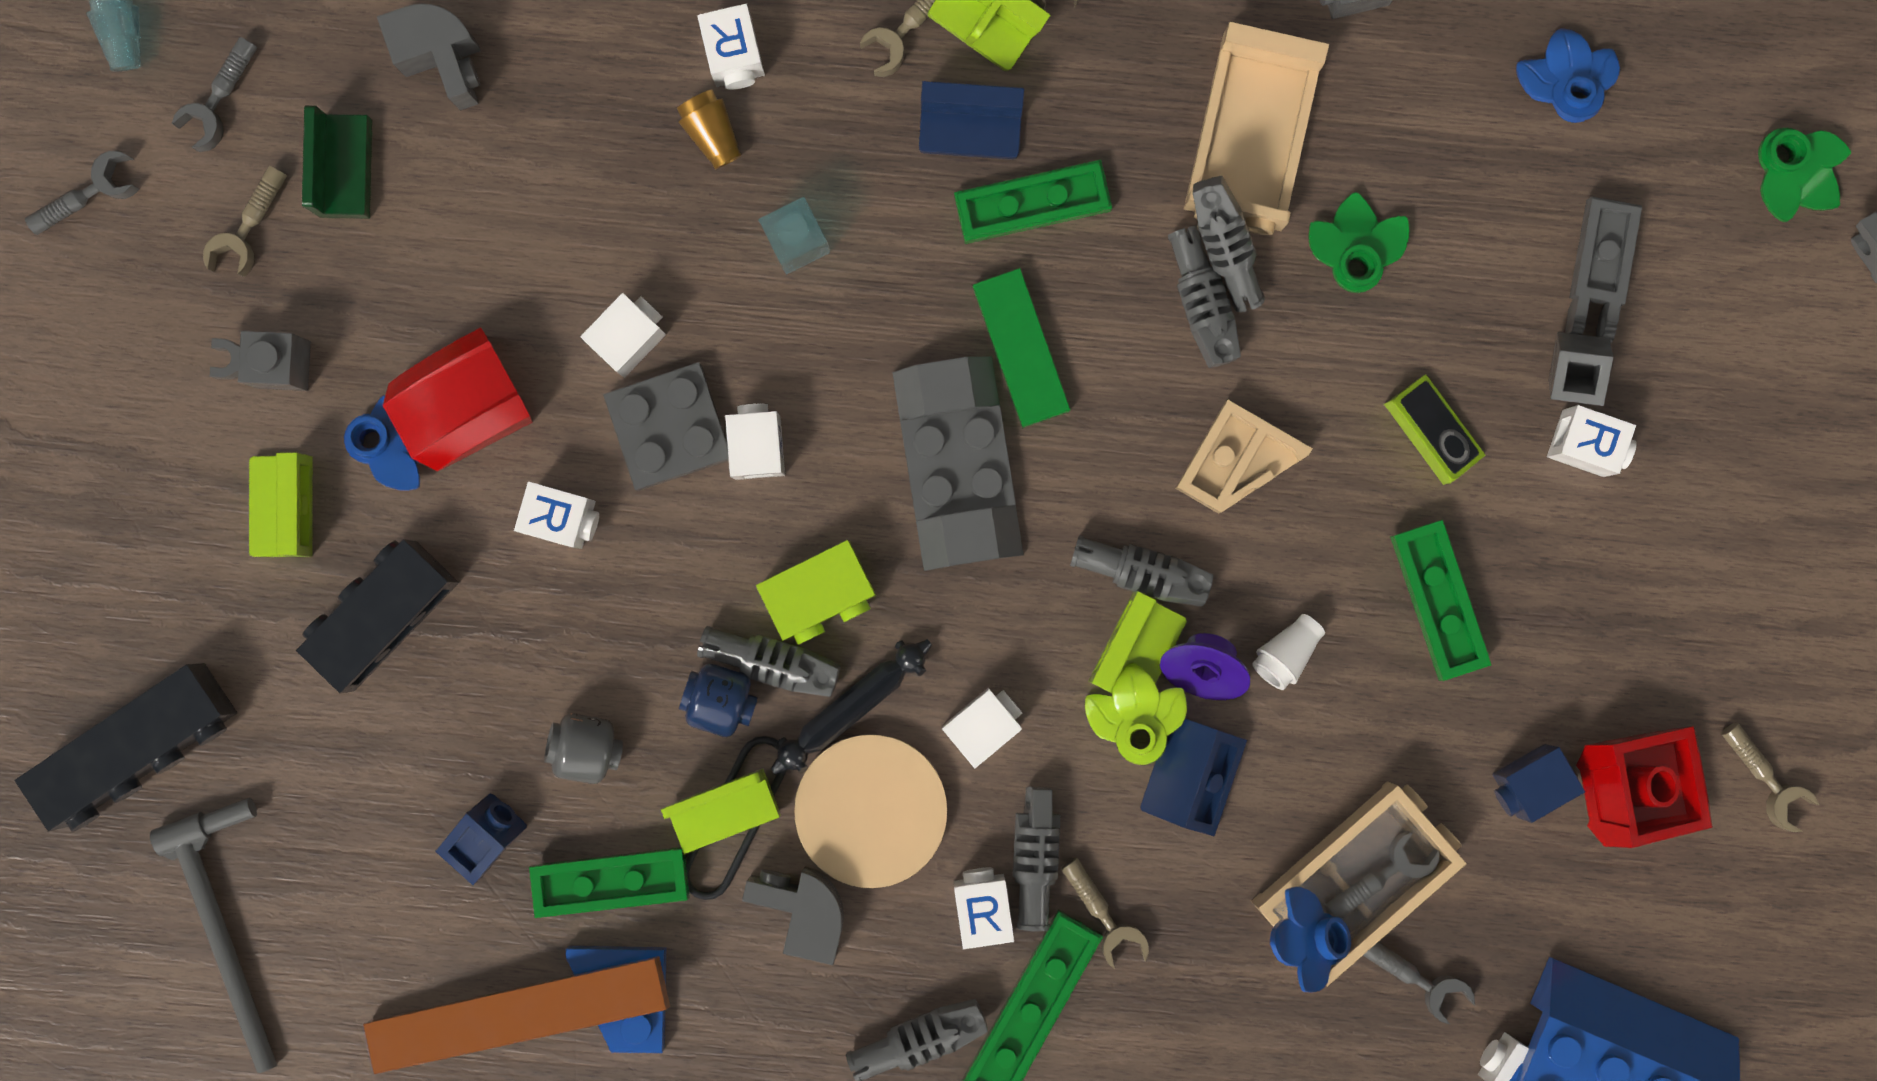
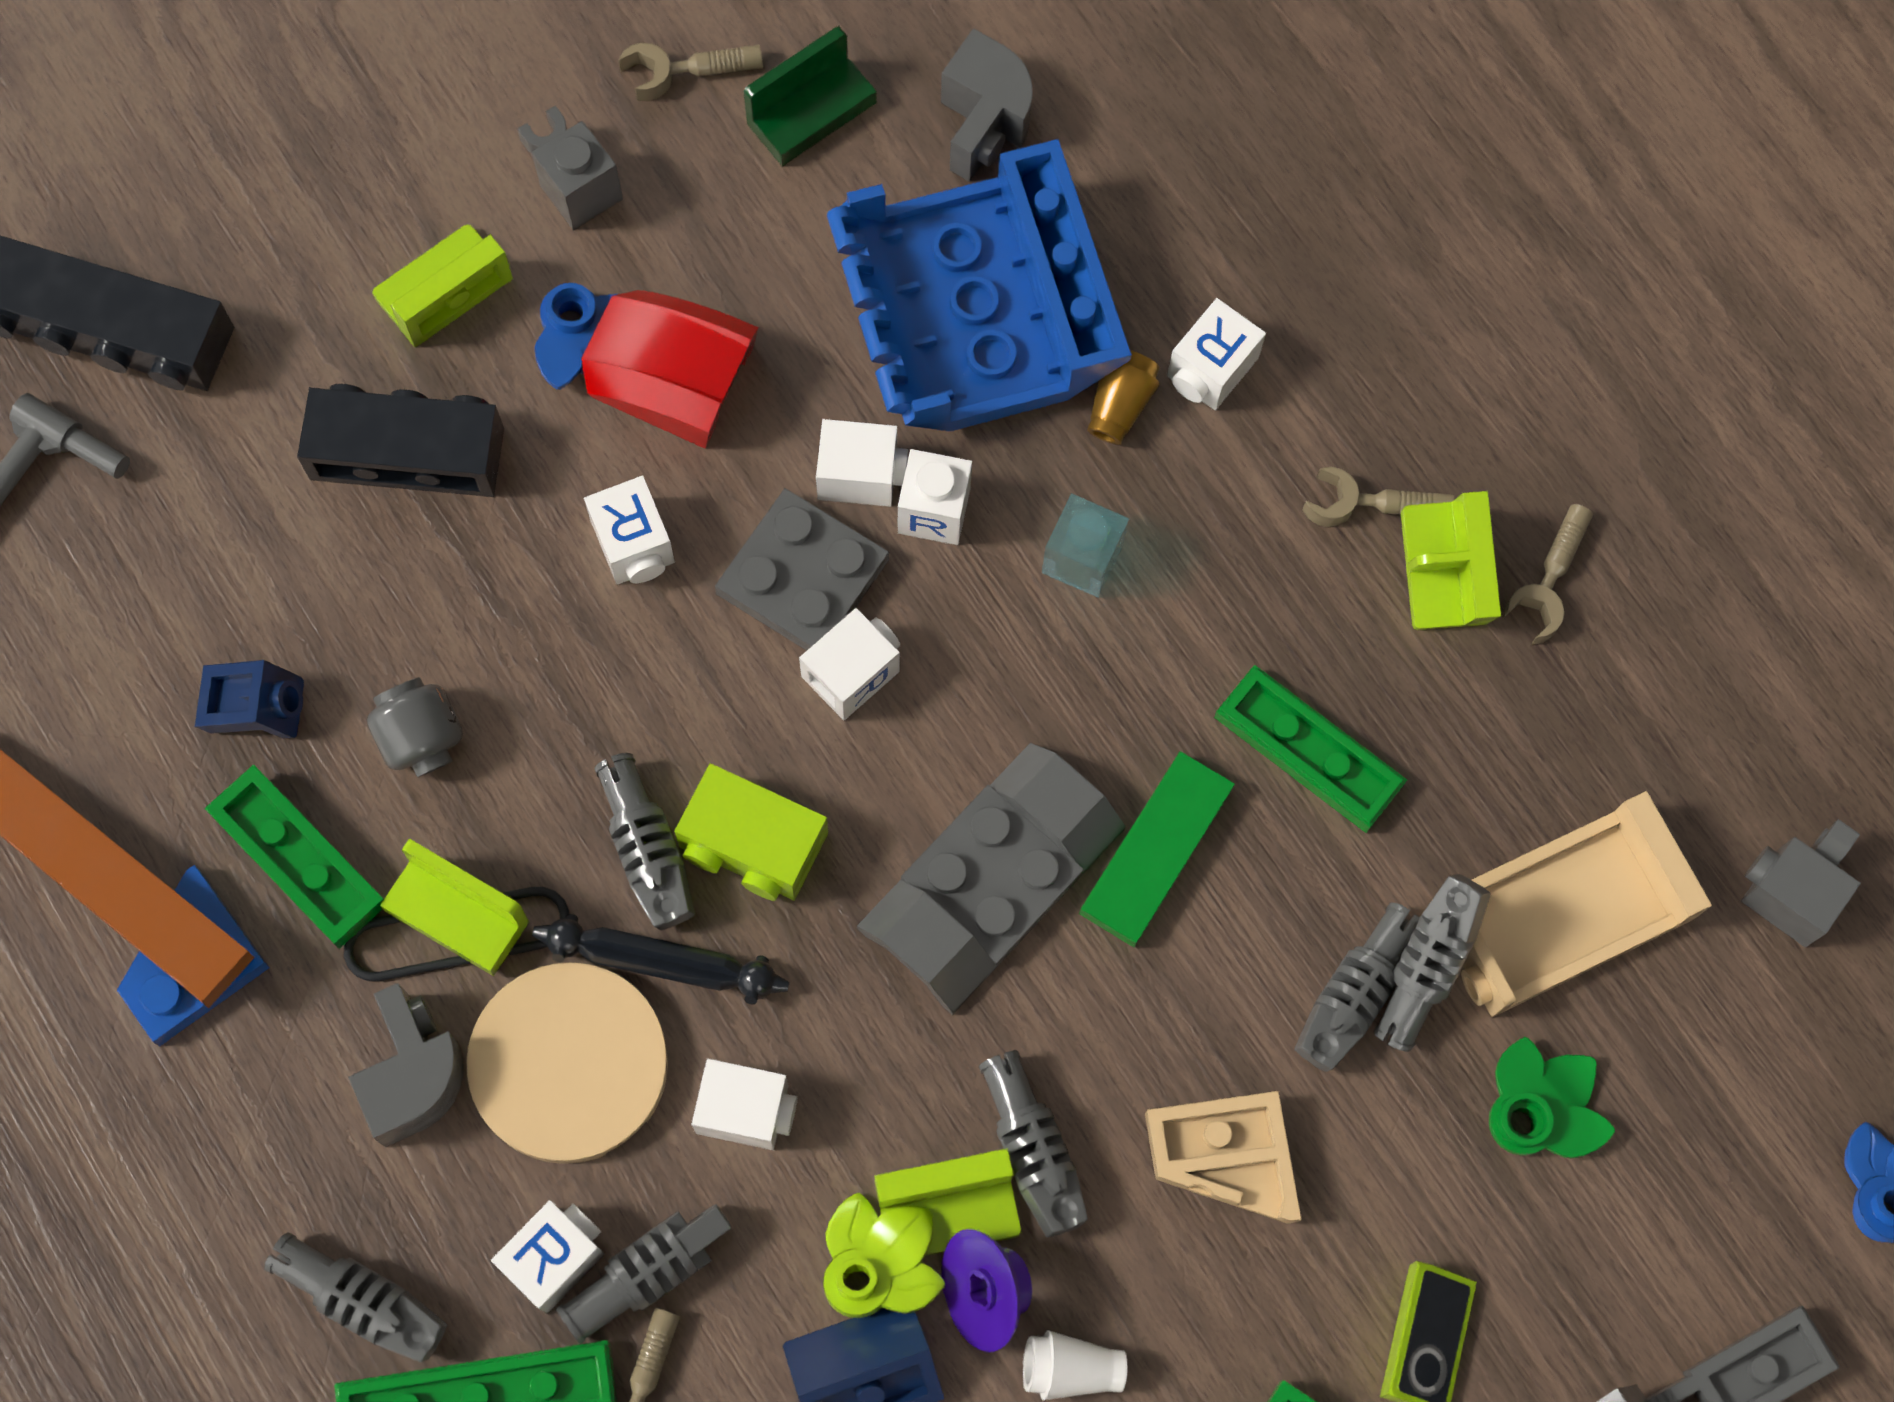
camera: 45 degrees right, 15 degrees down
(569, 163) = (981, 293): none -> blue slope
(686, 304) = (934, 496): none -> white brick
(717, 700) = (564, 818): dark blue head -> none
(970, 120) = (1338, 627): dark blue panel -> none

